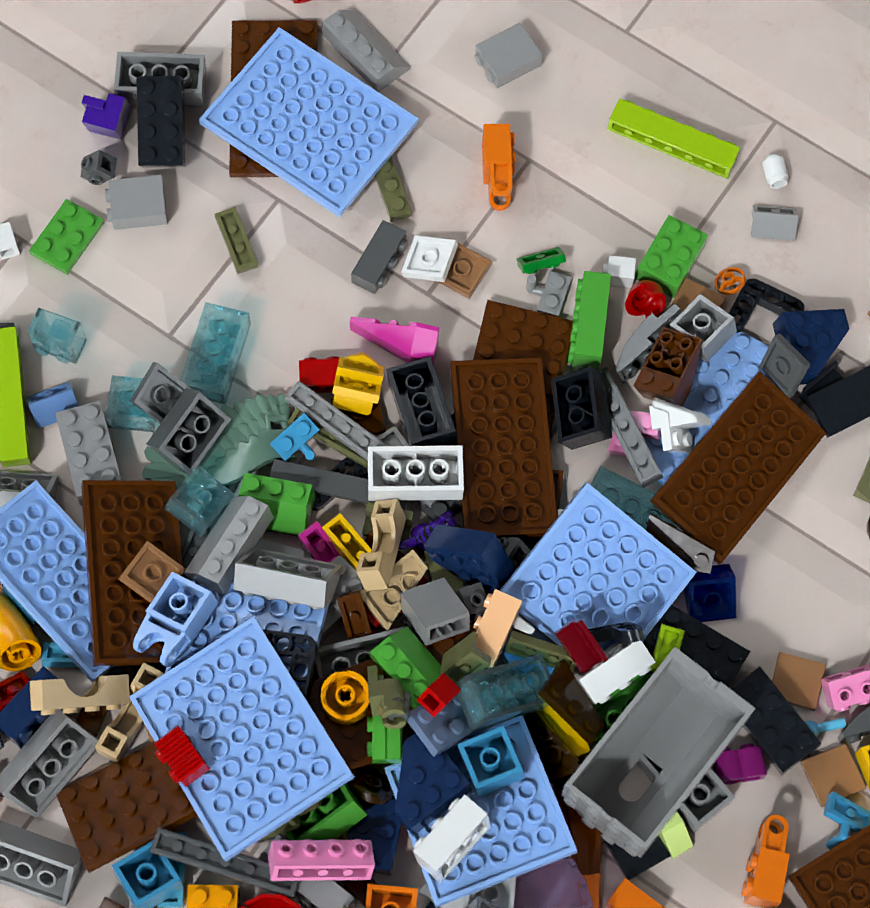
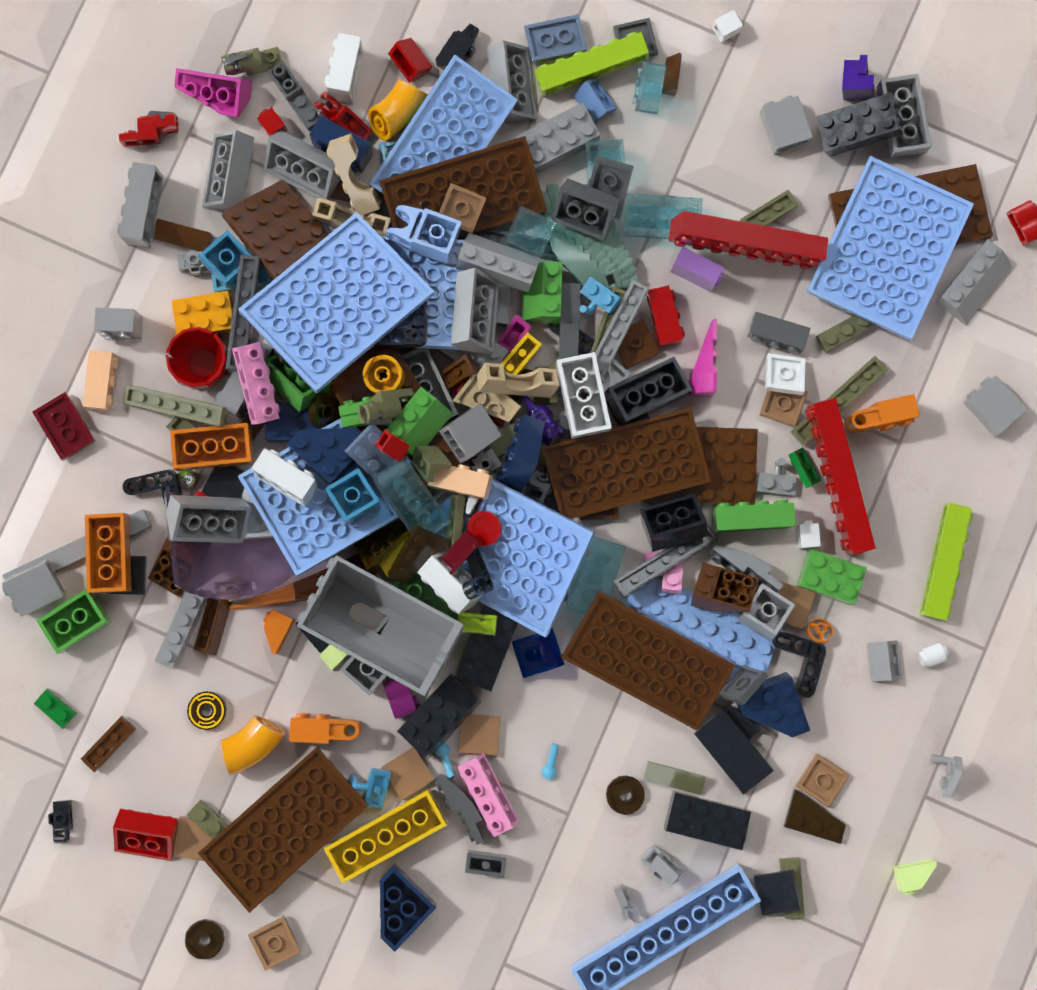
camera: 80 degrees right, 15 degrees up
(30, 306) = (672, 74): none -> reddish brown slope
(66, 236) = (744, 75): bright green plate -> none
(98, 167) = (809, 85): dark grey brick -> none
(181, 756) = (310, 259): red brick -> none
(267, 262) = (747, 240): none -> red brick
(287, 326) = (697, 269): none -> medium lavender brick
(357, 383) = (657, 334): yellow piece -> none
(471, 210) = (845, 394): none -> olive plate
(553, 613) = (485, 527): none -> red piece
(560, 220) = (840, 477): none -> red brick
(645, 298) = (787, 561): red helmet -> none
(675, 424) = (671, 600): white piece -> none
(687, 548) = (564, 626): wing -> none
(851, 609) = (549, 771): none -> medium azure bar

